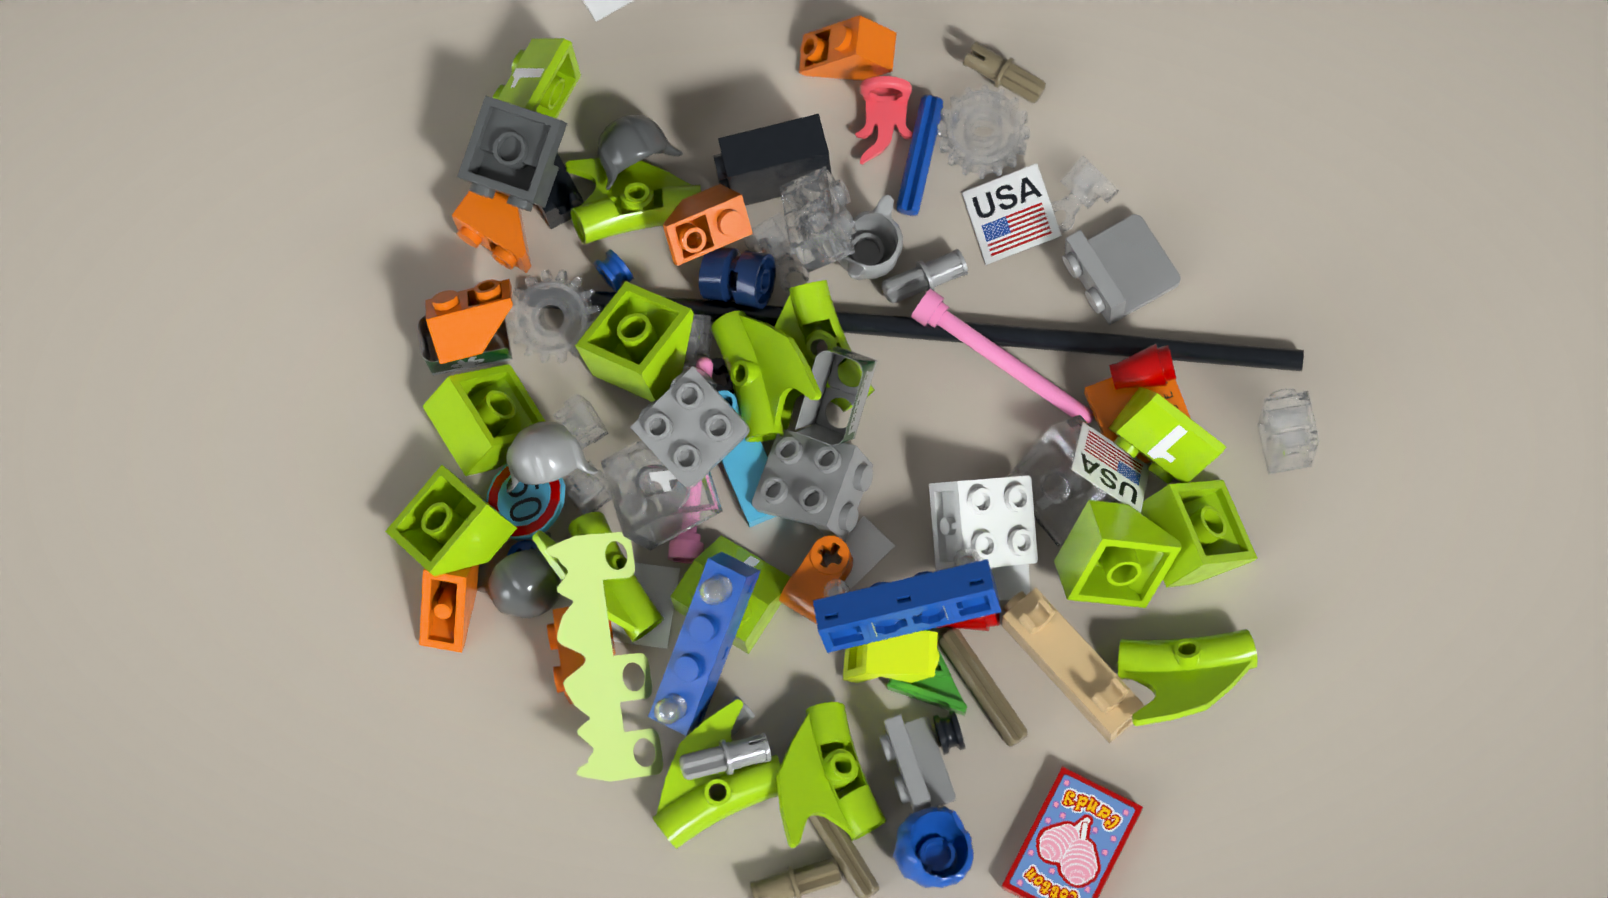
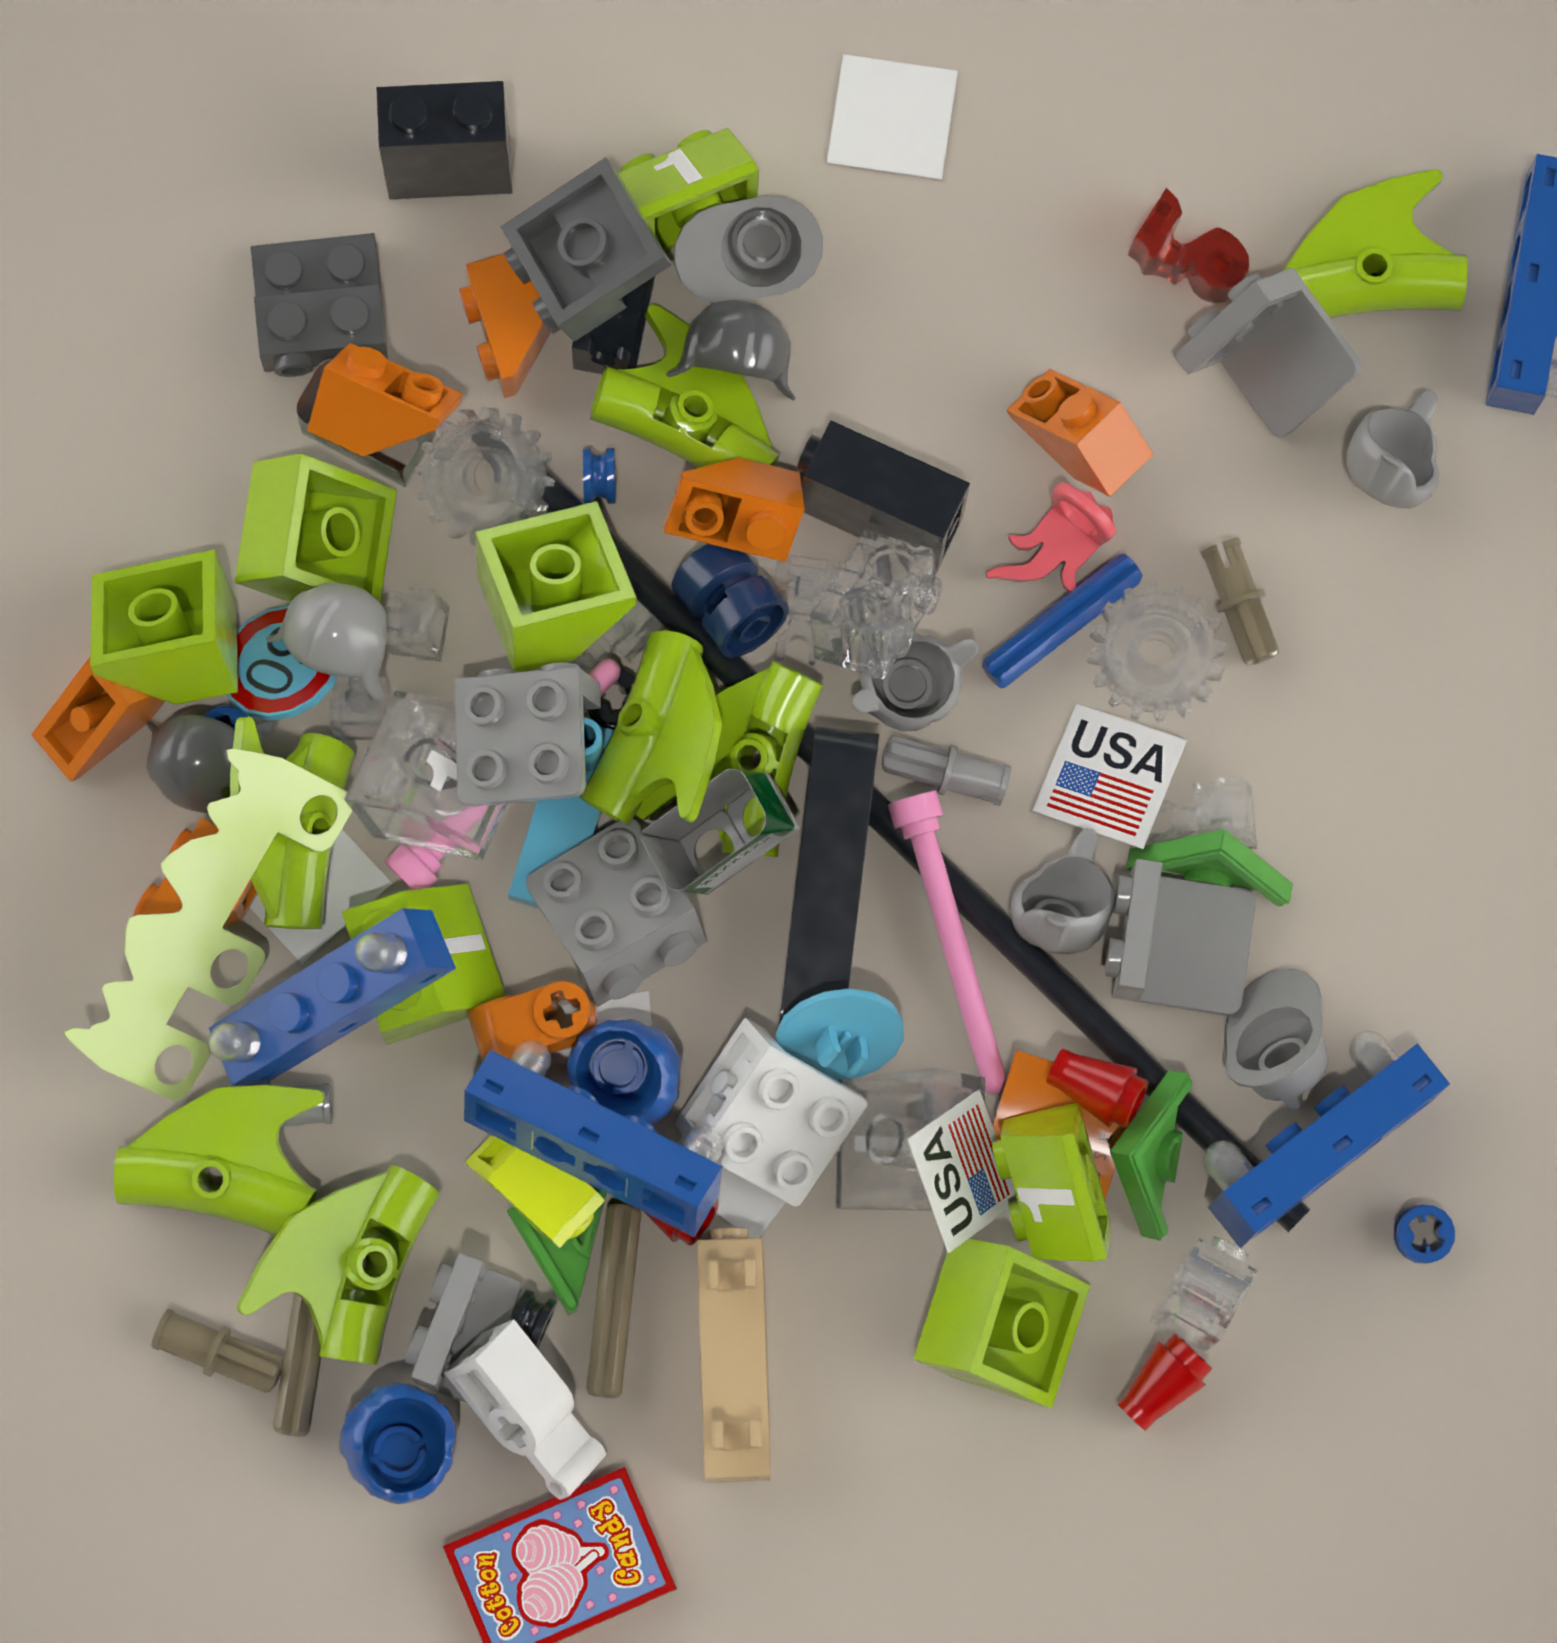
camera: 25 degrees right, 5 degrees up
(384, 299) = (316, 301): none -> dark grey plate
(387, 158) = (444, 140): none -> black brick
(596, 91) = (748, 249): none -> light grey piece
(725, 757) = (249, 1147): light grey axle -> none
(888, 556) = (627, 1068): none -> blue hair
(915, 382) = (830, 864): none -> black beam
(983, 774) = (526, 1406): none -> white piece
(987, 448) = (842, 1032): none -> medium azure piece
(1045, 292) = (1066, 901): none -> light grey hair
(1104, 210) = (1217, 860): none -> bright green tile
(1114, 556) = (880, 1276): lime slope -> none
(1185, 672) = (851, 1476): lime pin -> none
(1198, 384) = (1150, 1153): none -> bright green tile
(1213, 274) = (1278, 1037): none -> light grey piece
(1288, 296) = (1312, 1156): none -> blue piece
(1304, 495) = (1165, 1381): none -> red cone
(1380, 306) = (1404, 1236): none -> blue bush

